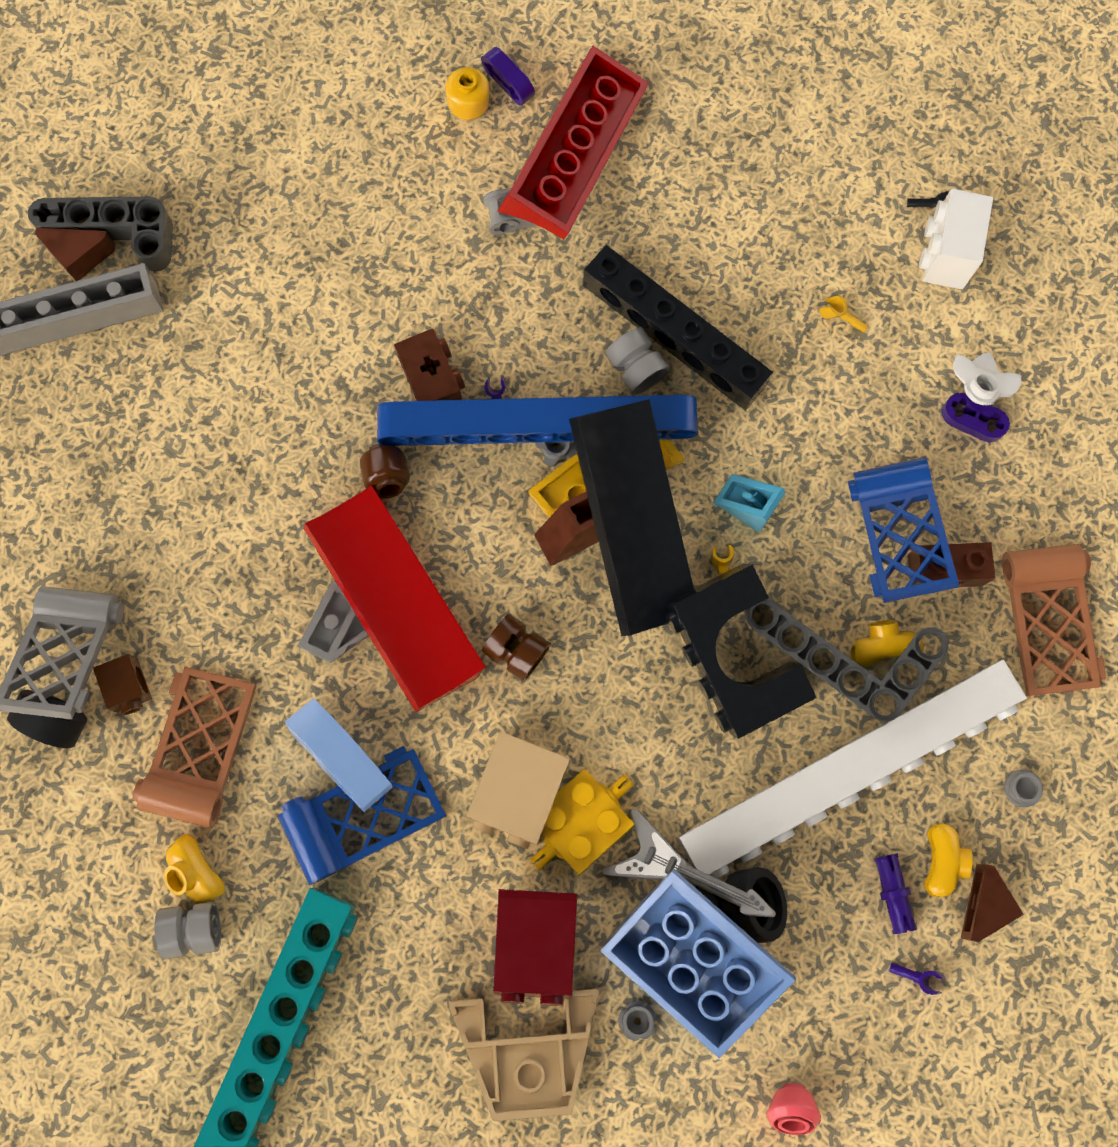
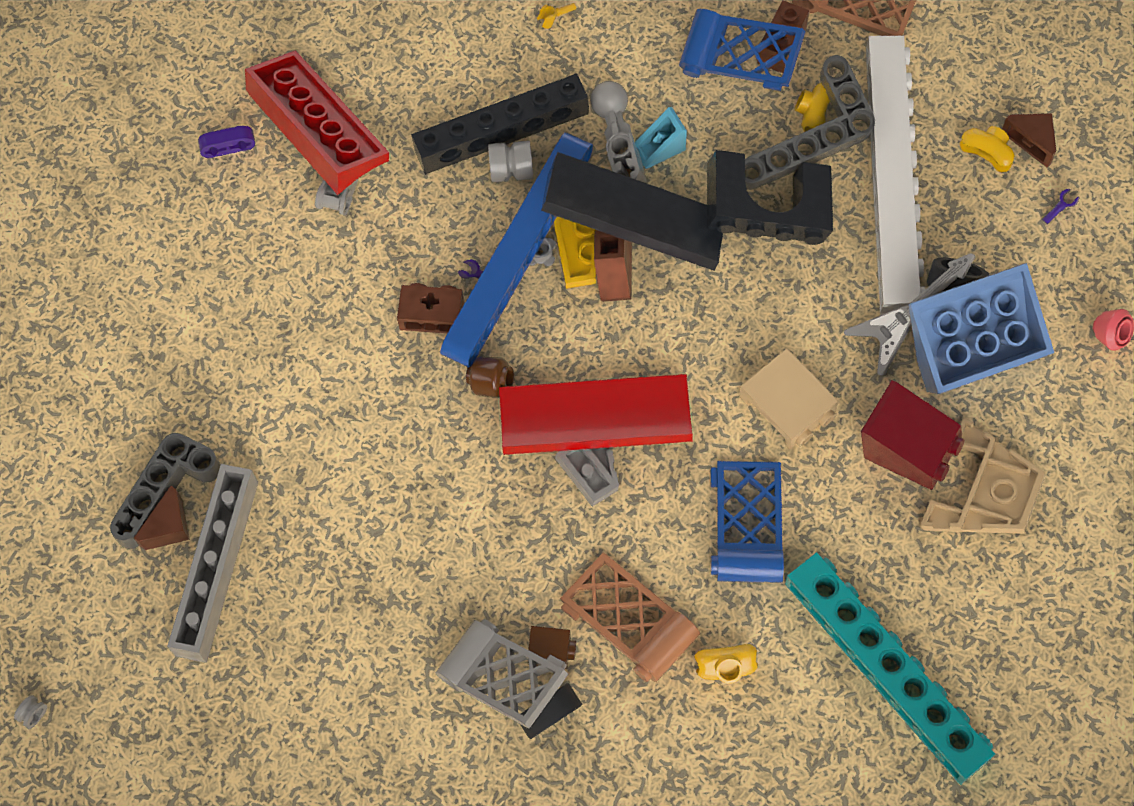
camera: 55 degrees left, 10 degrees down
(185, 930) = (771, 684): light grey wheel -> none
(338, 754) = (694, 511): light blue slope -> none
(467, 93) = (224, 174): yellow head -> none
(525, 656) = (692, 347): reddish brown wheel -> none
(584, 822) = (839, 367): yellow plate -> none
(642, 1030) = (1003, 396): light grey plate -> none
(696, 486) = (609, 102): none -> light grey beam
(722, 564) = (693, 185): yellow hand -> none
(895, 894) = (995, 191): dark purple pin -> none
(1023, 788) = (964, 74): light grey plate -> none

